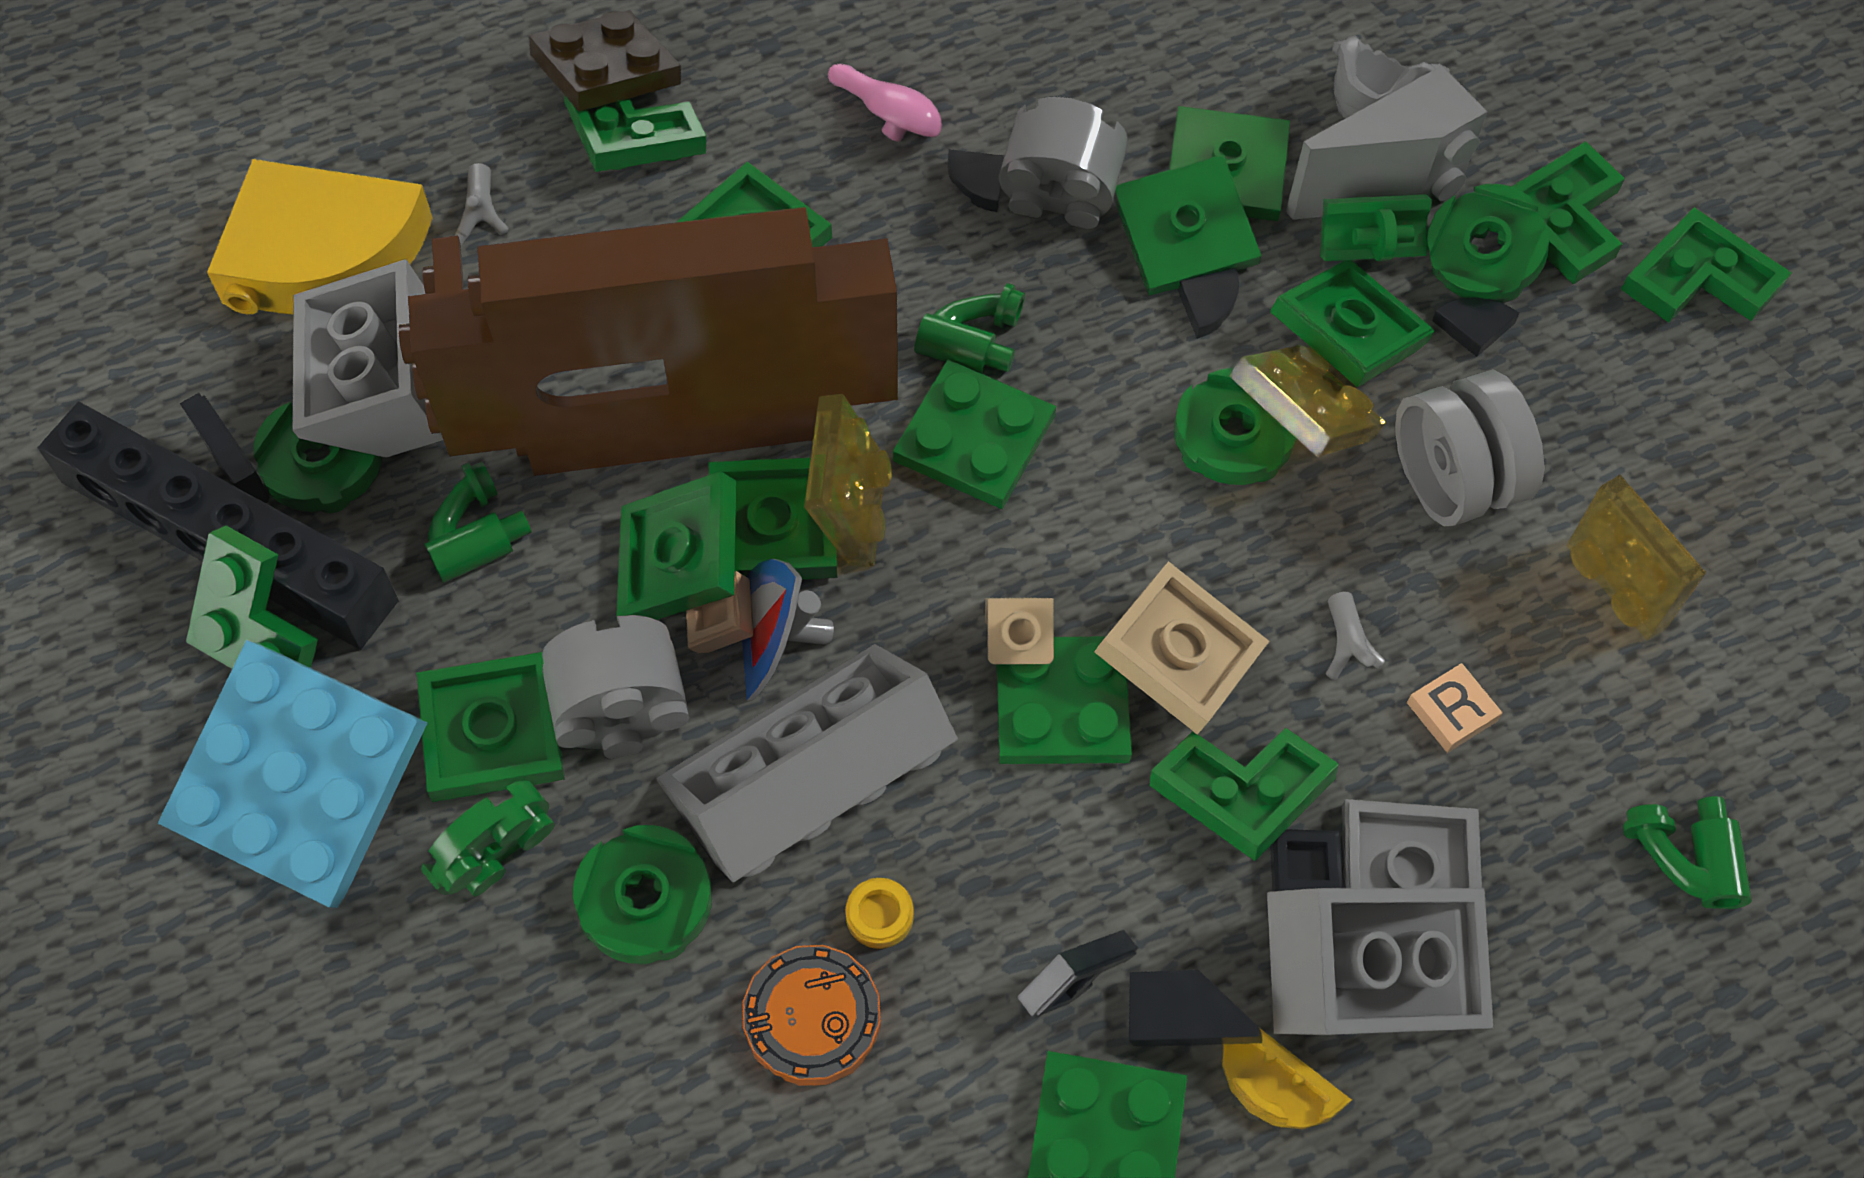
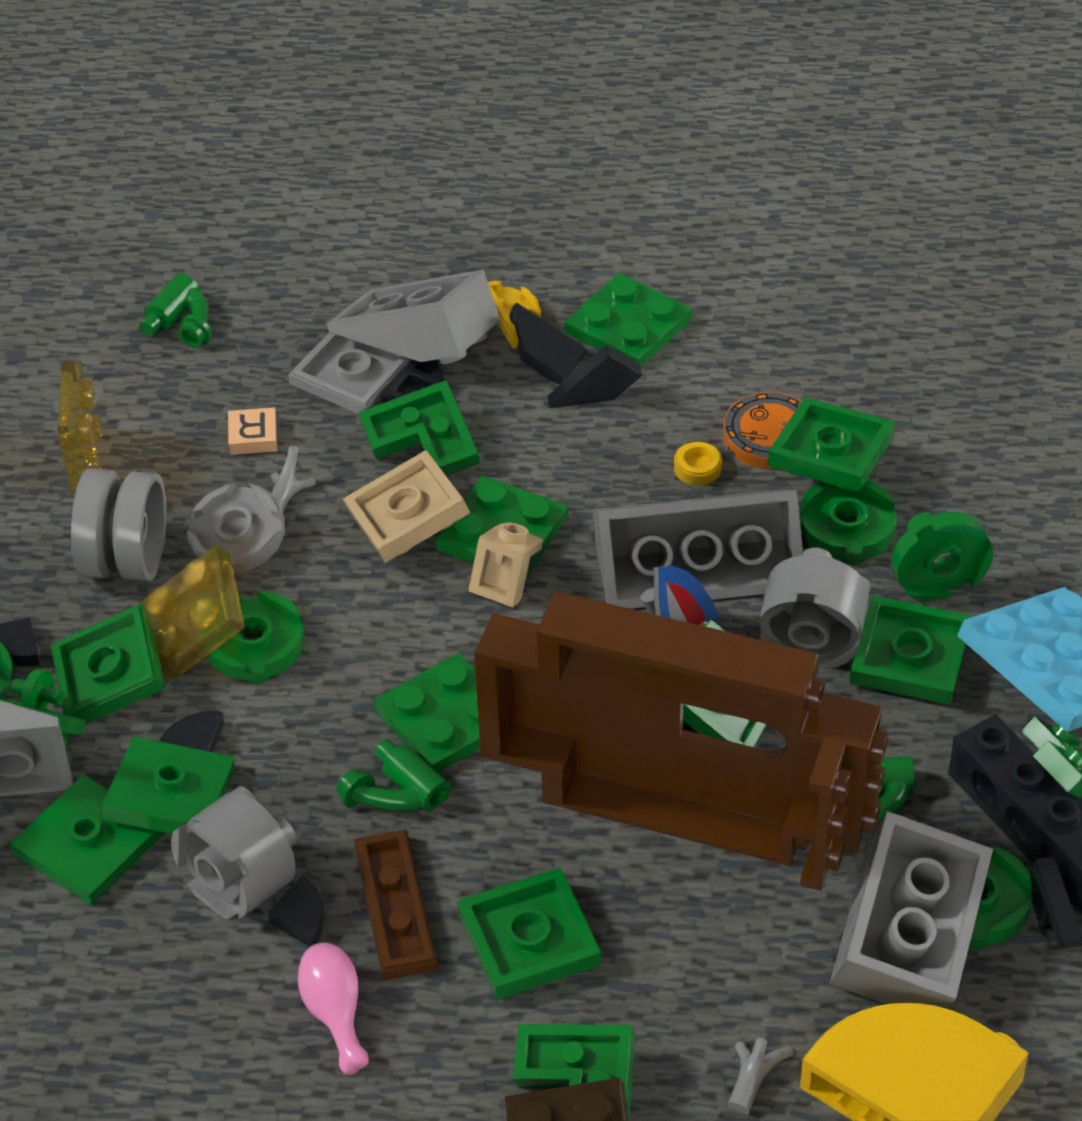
camera: 150 degrees left, 15 degrees down
(700, 971) = (831, 444): none -> green plate
(889, 211) = (395, 905): none -> reddish brown tile
(1359, 551) = (240, 522): none -> light grey tile

